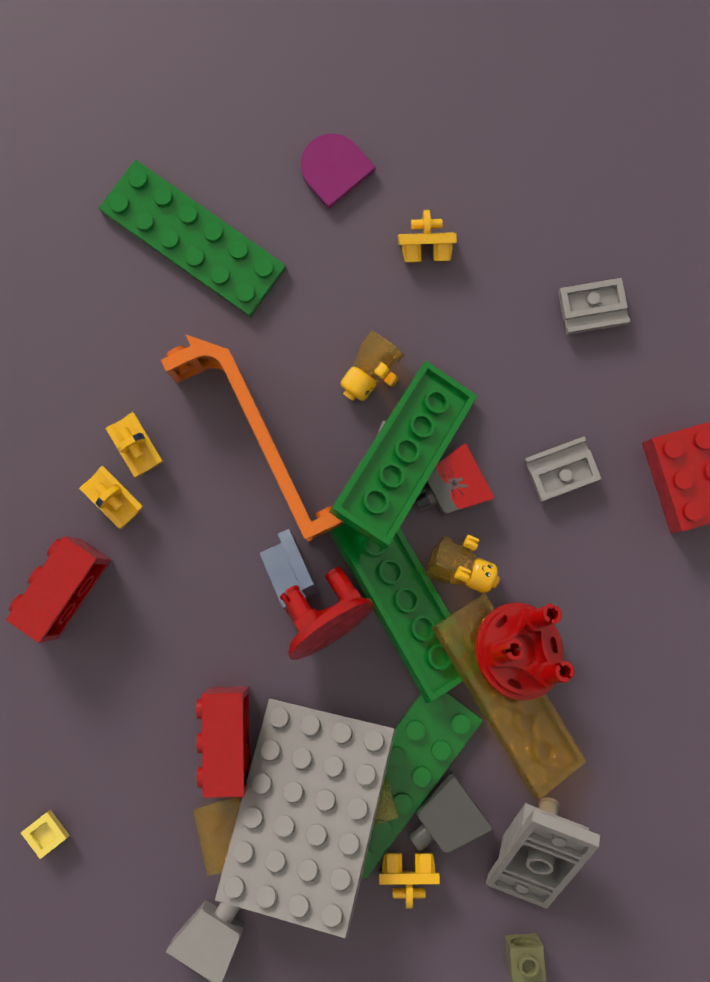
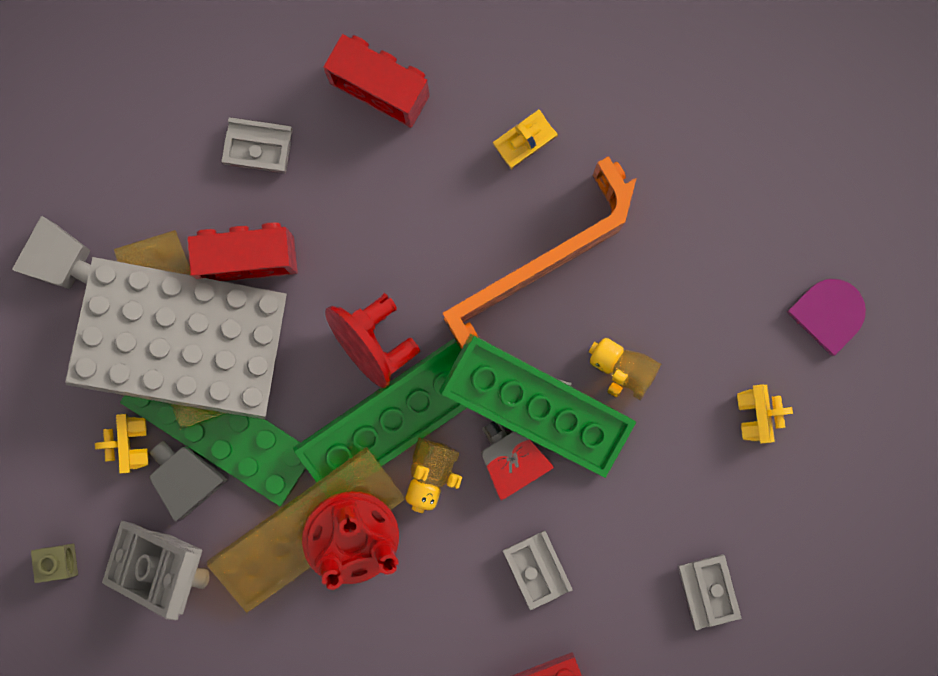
camera: 90 degrees right, 0 degrees up
(45, 834) = (143, 91): light yellow plate -> none
(111, 497) = (471, 122): yellow hips -> none
(113, 718) = (257, 145): none -> light grey plate
(192, 238) = (742, 177): green plate -> none
(288, 568) = (416, 301): sand blue panel -> none

